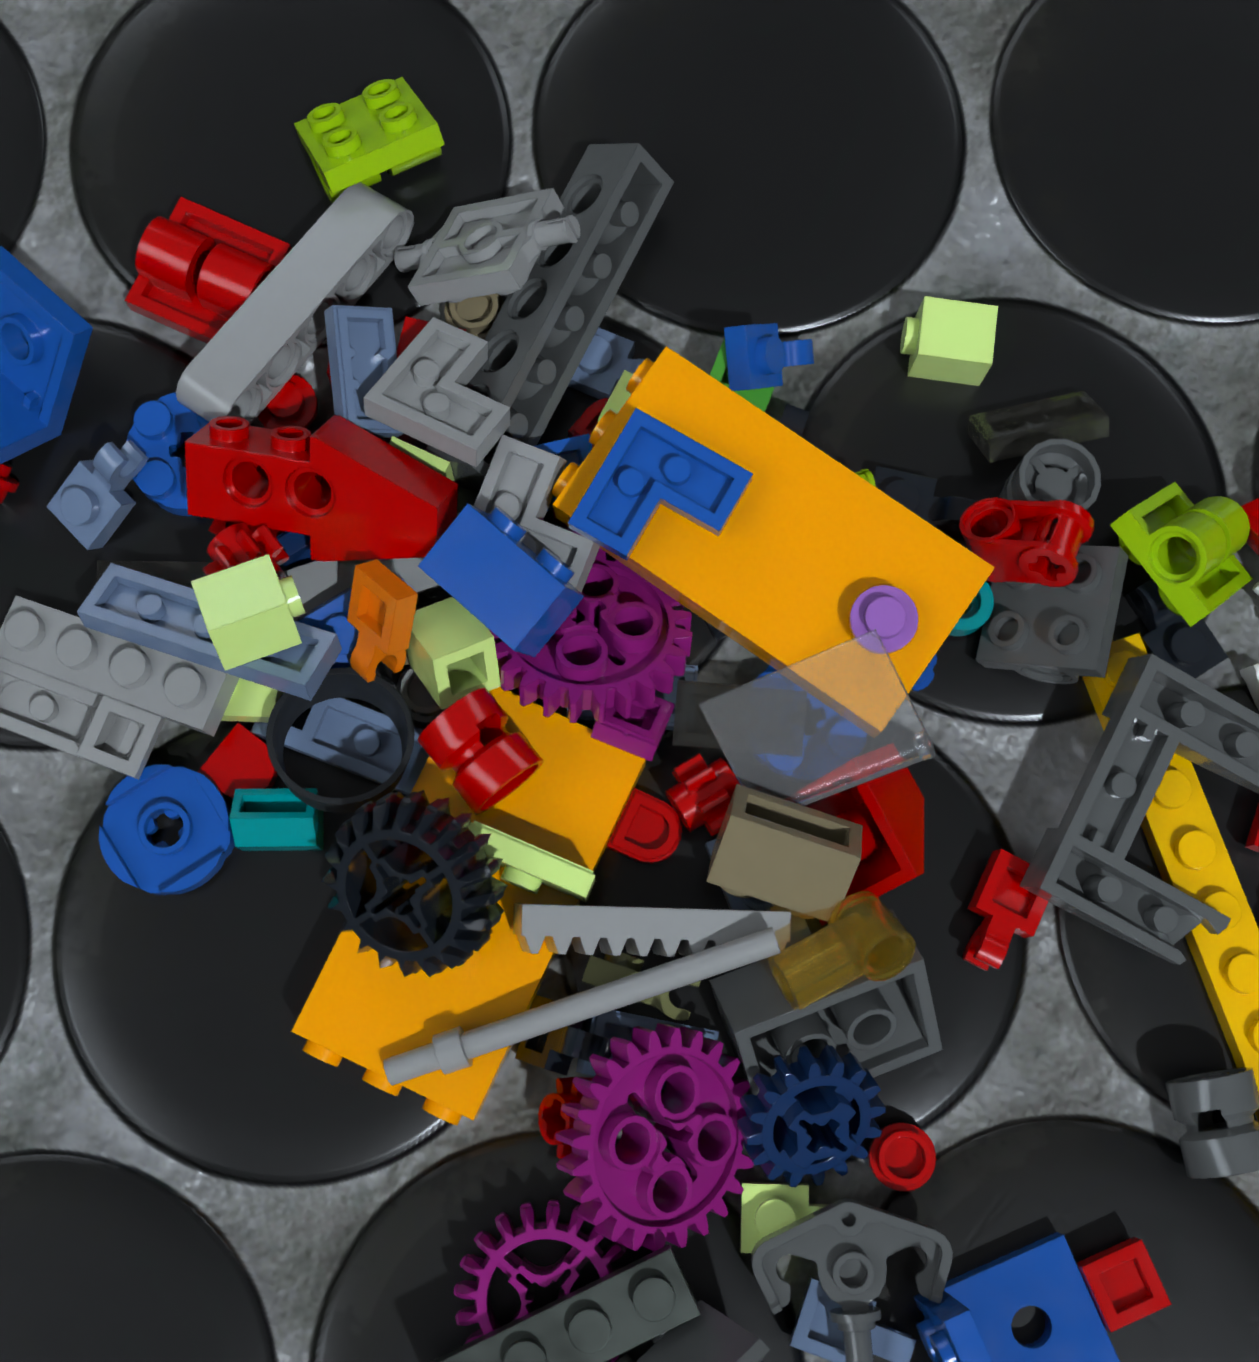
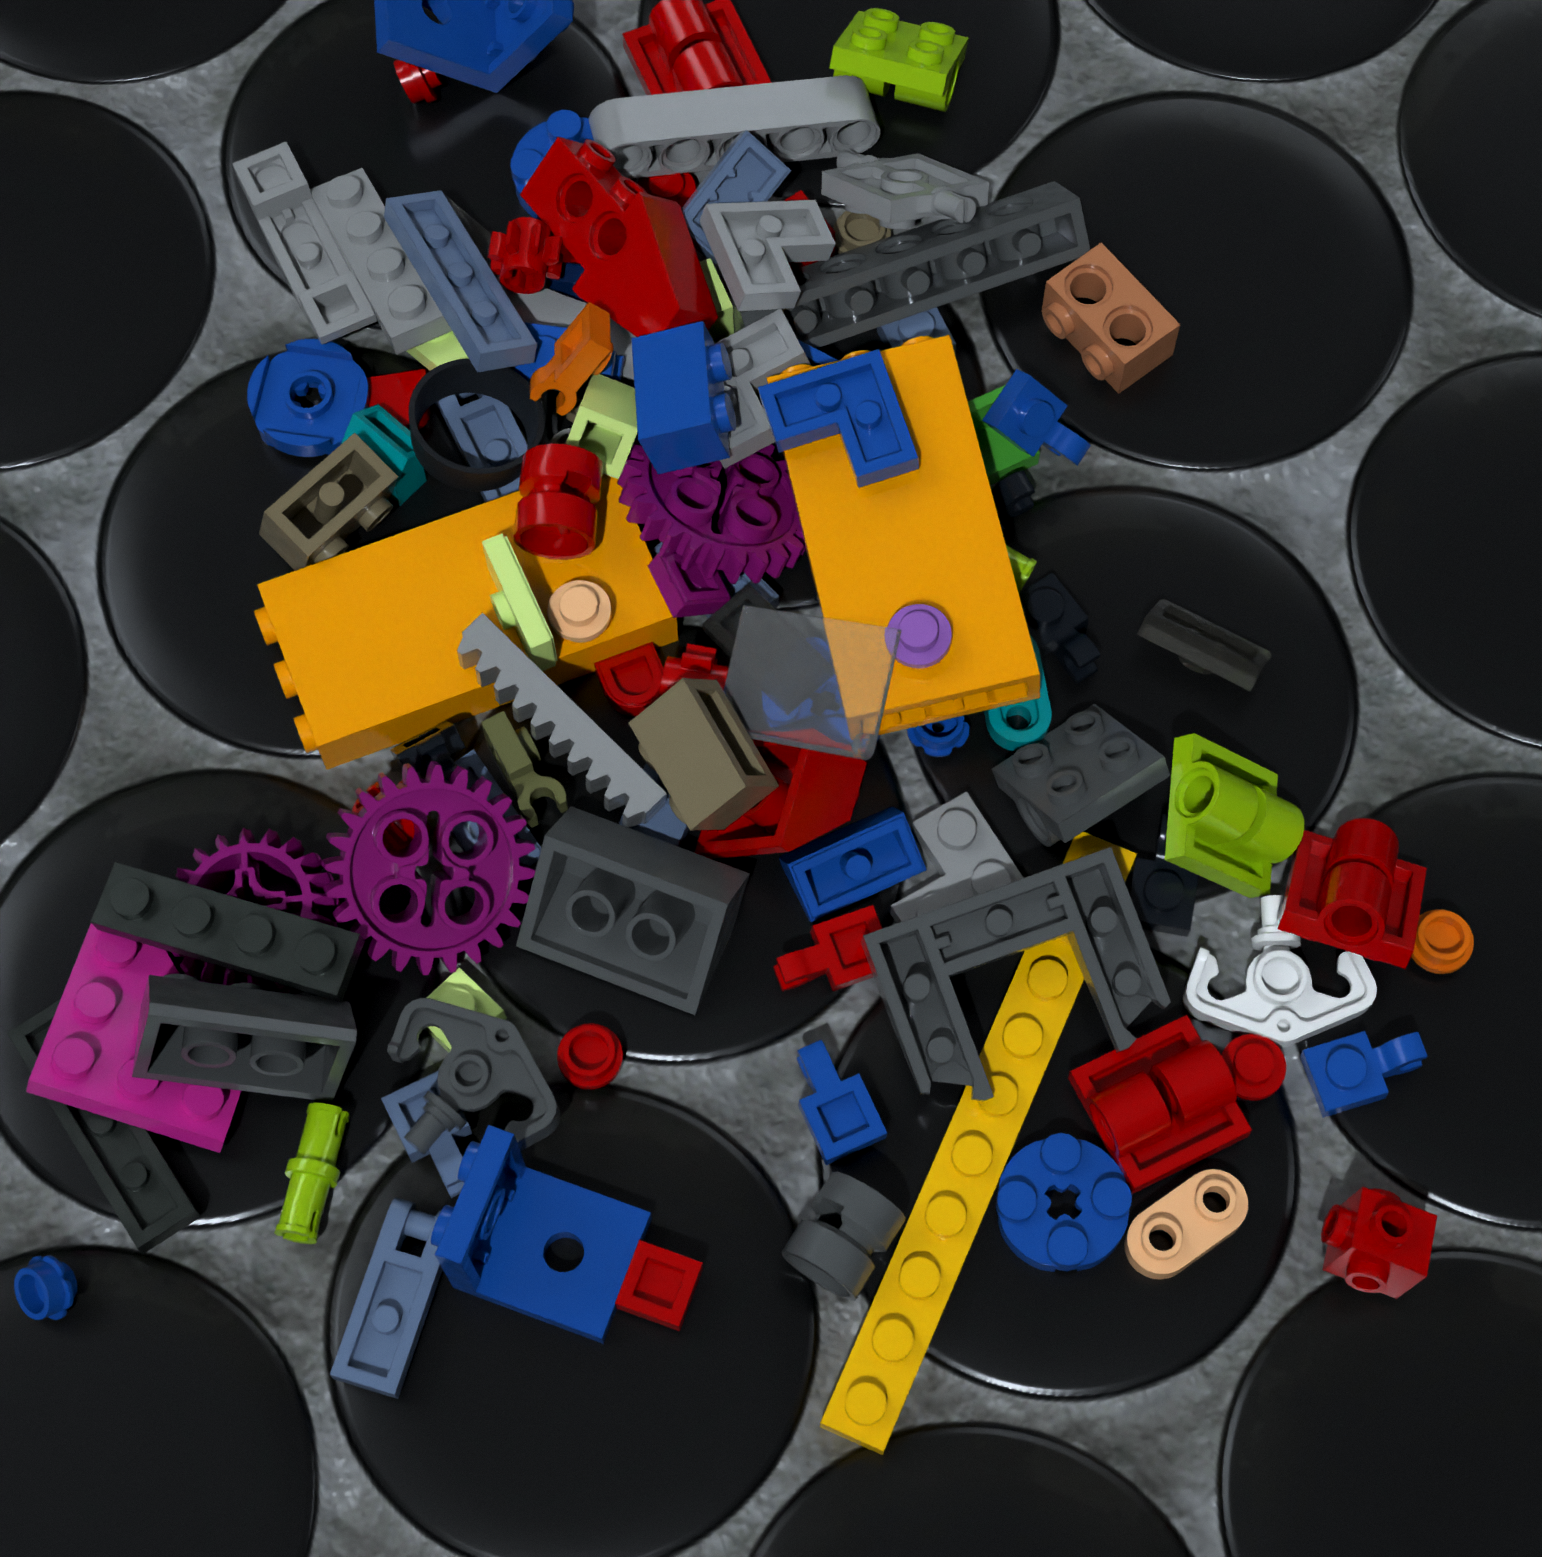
camera: 50 degrees right, 10 degrees down
(94, 497) = (474, 145): sand blue plate -> none
(249, 611) = (490, 276): yellowish green brick -> none
(283, 910) = (329, 505): none -> dark tan brick
(430, 922) = (426, 540): black gear -> none
(455, 1048) = (352, 684): light grey bar -> none
(577, 823) = (579, 611): none -> light nougat plate
(732, 207) = (1120, 311): none -> nougat brick
(810, 1116) = (561, 930): dark blue gear -> none
(857, 942) = (668, 843): clear yellow piece -> none
(950, 340) = (1196, 530): yellowish green brick -> none
(954, 814) = (853, 863): none -> blue slope
(1024, 541) = (1099, 693): red piece -> none
(1036, 749) = (962, 853): none -> light grey plate
(1055, 472) = (1163, 689): dark grey wheel -> none
(1119, 1026) = (839, 1111): none -> blue plate

